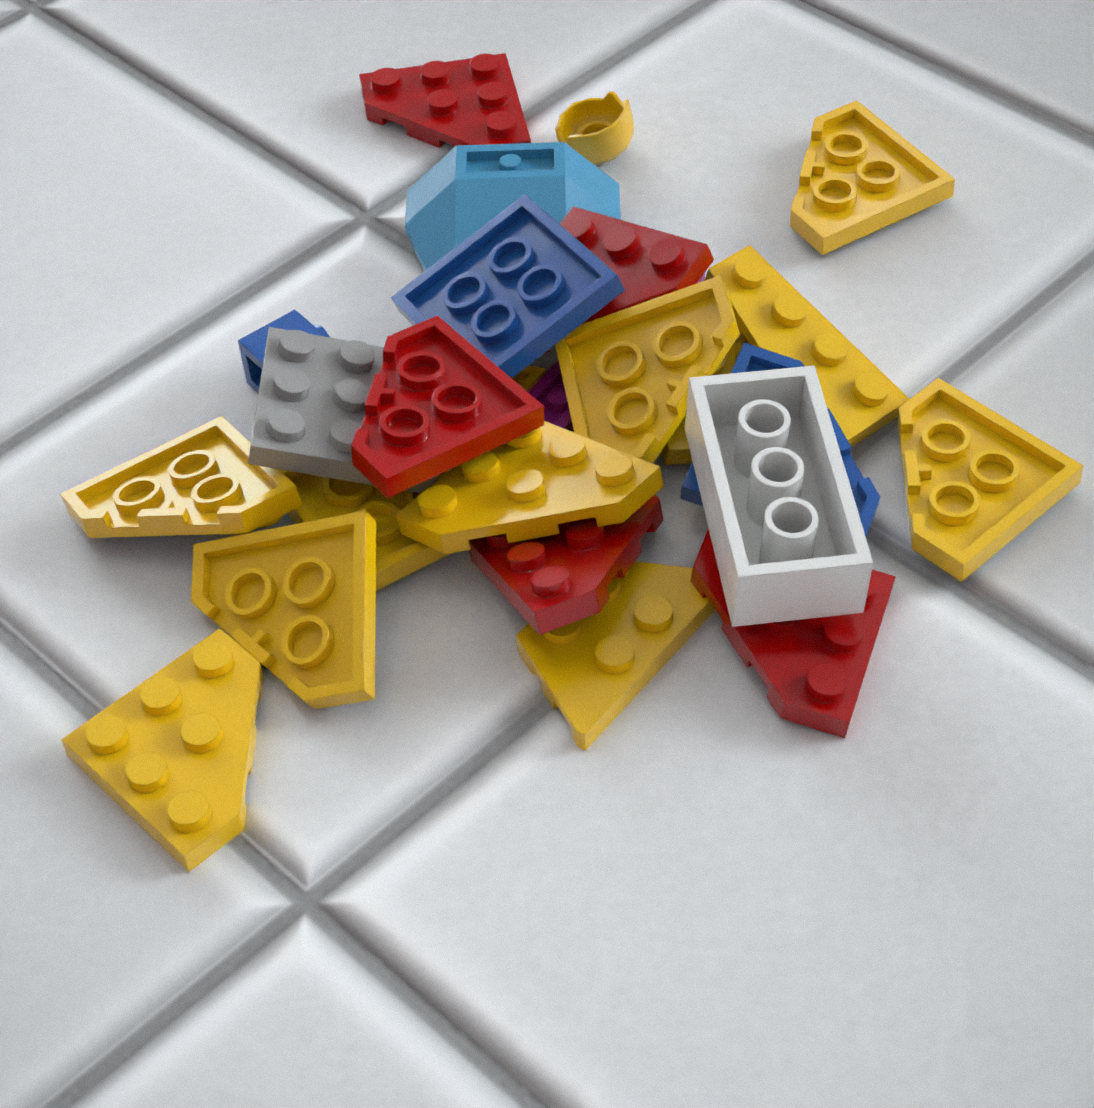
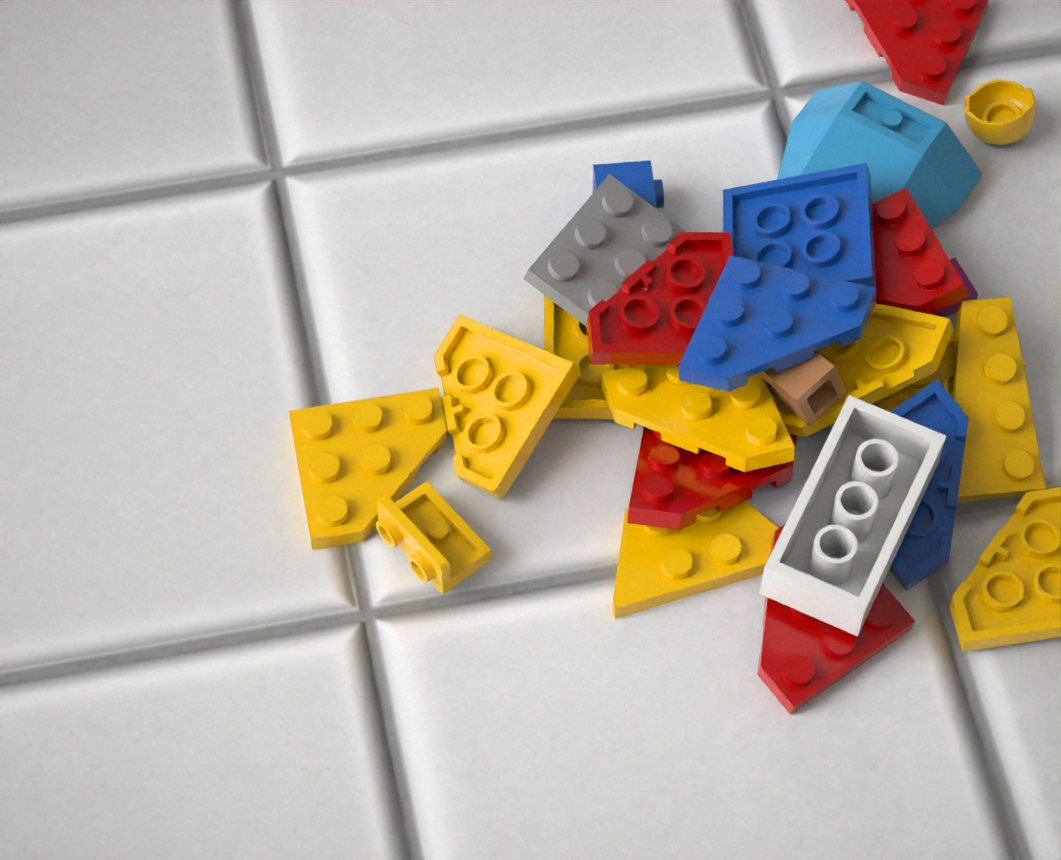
camera: 30 degrees right, 10 degrees up
(184, 488) = (480, 266): yellow plate -> none
(325, 775) = (432, 536): none -> yellow bracket
(550, 358) = (770, 319): none -> blue plate
(616, 403) = (807, 387): none -> medium nougat brick

